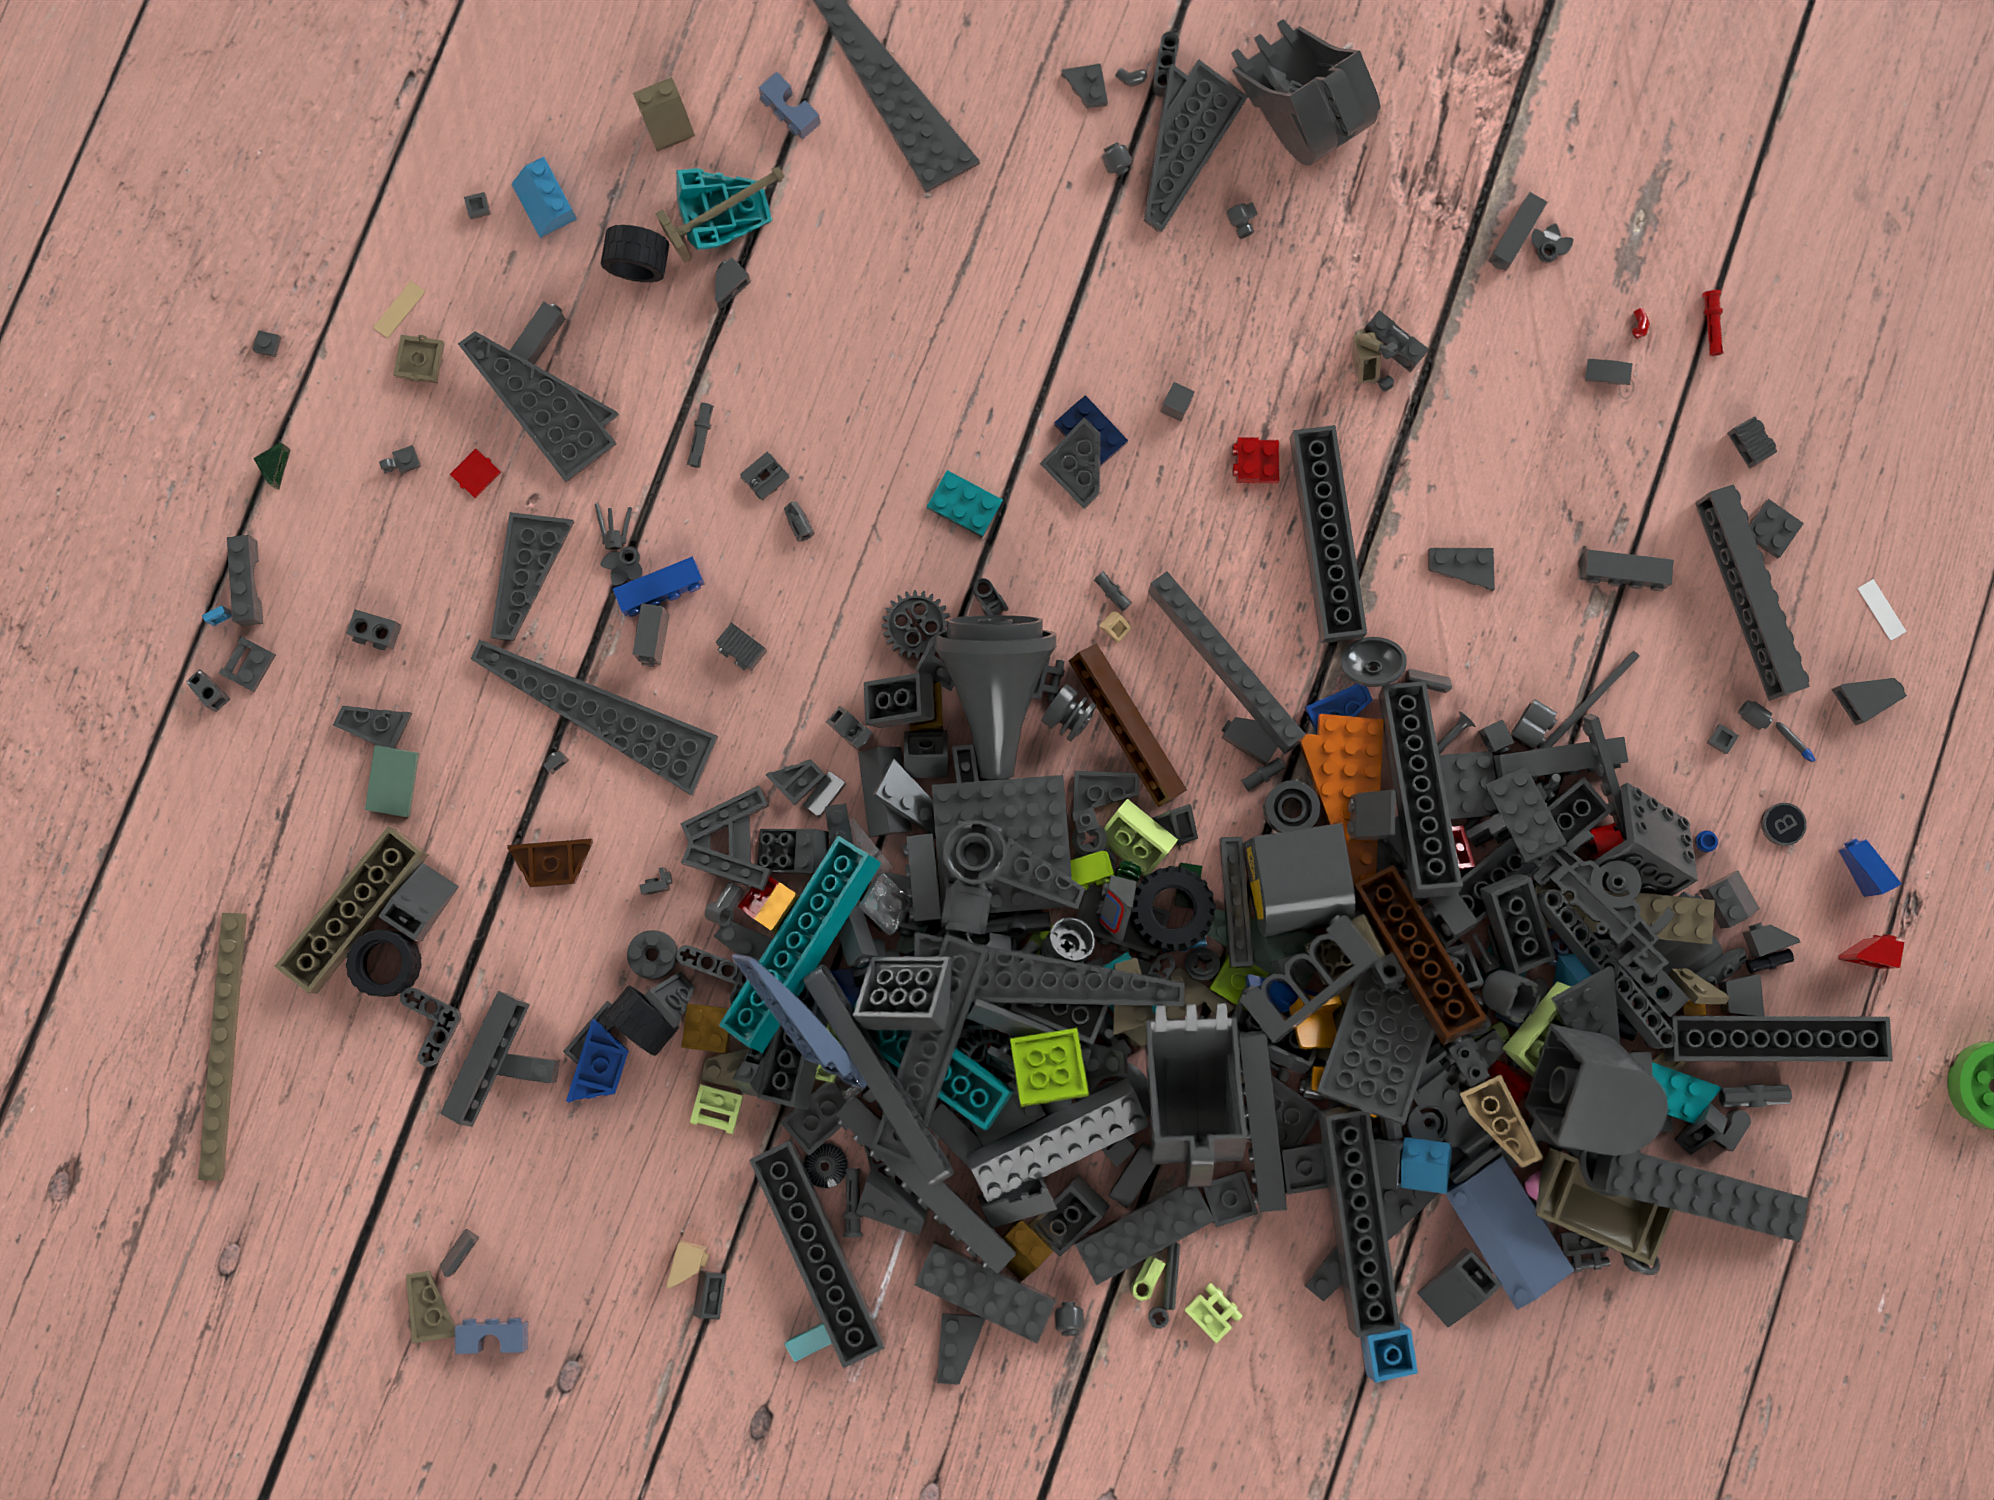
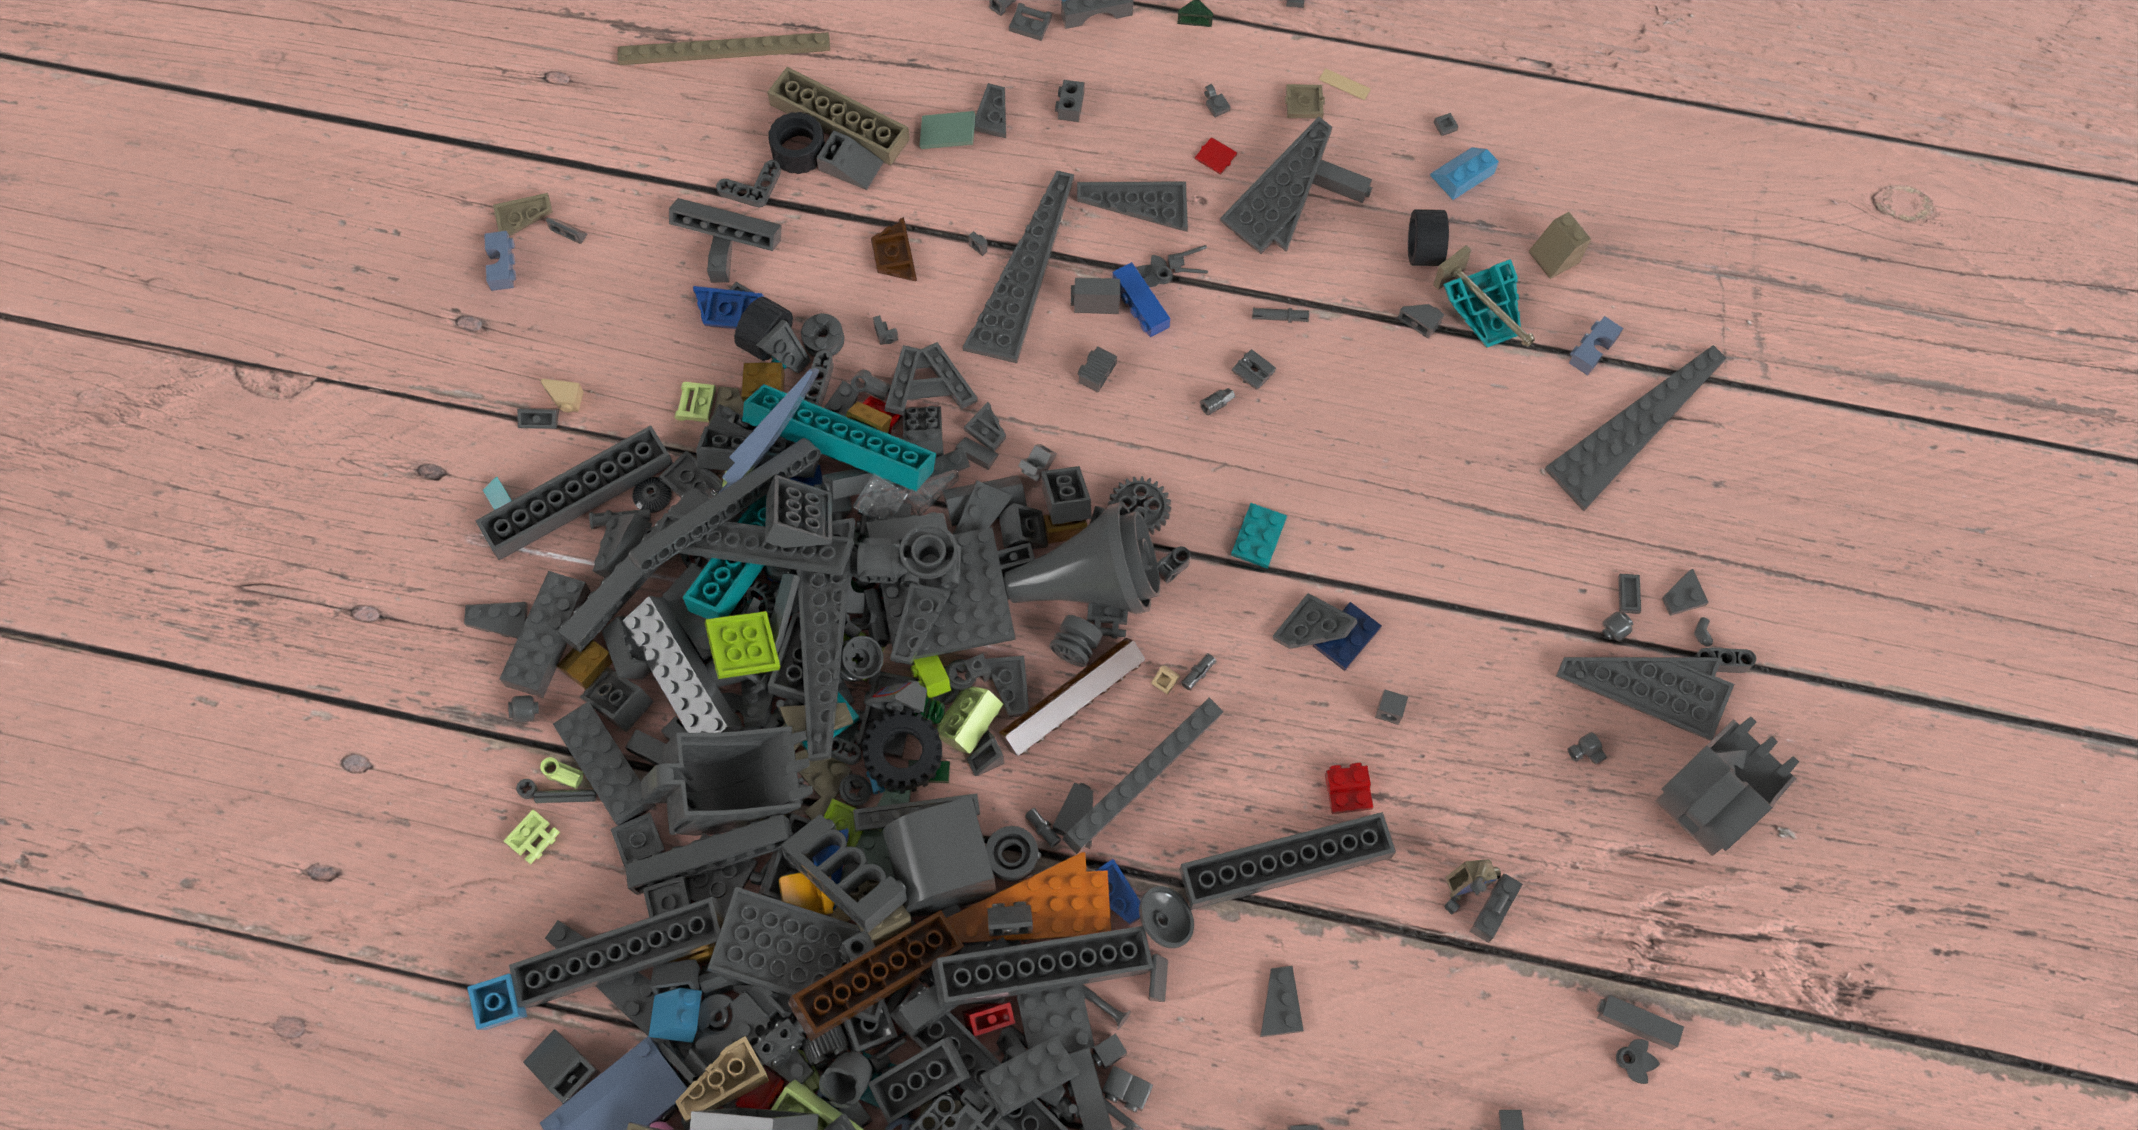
camera: 85 degrees right, 15 degrees down
(1079, 139) = (1629, 593): none -> dark grey tile

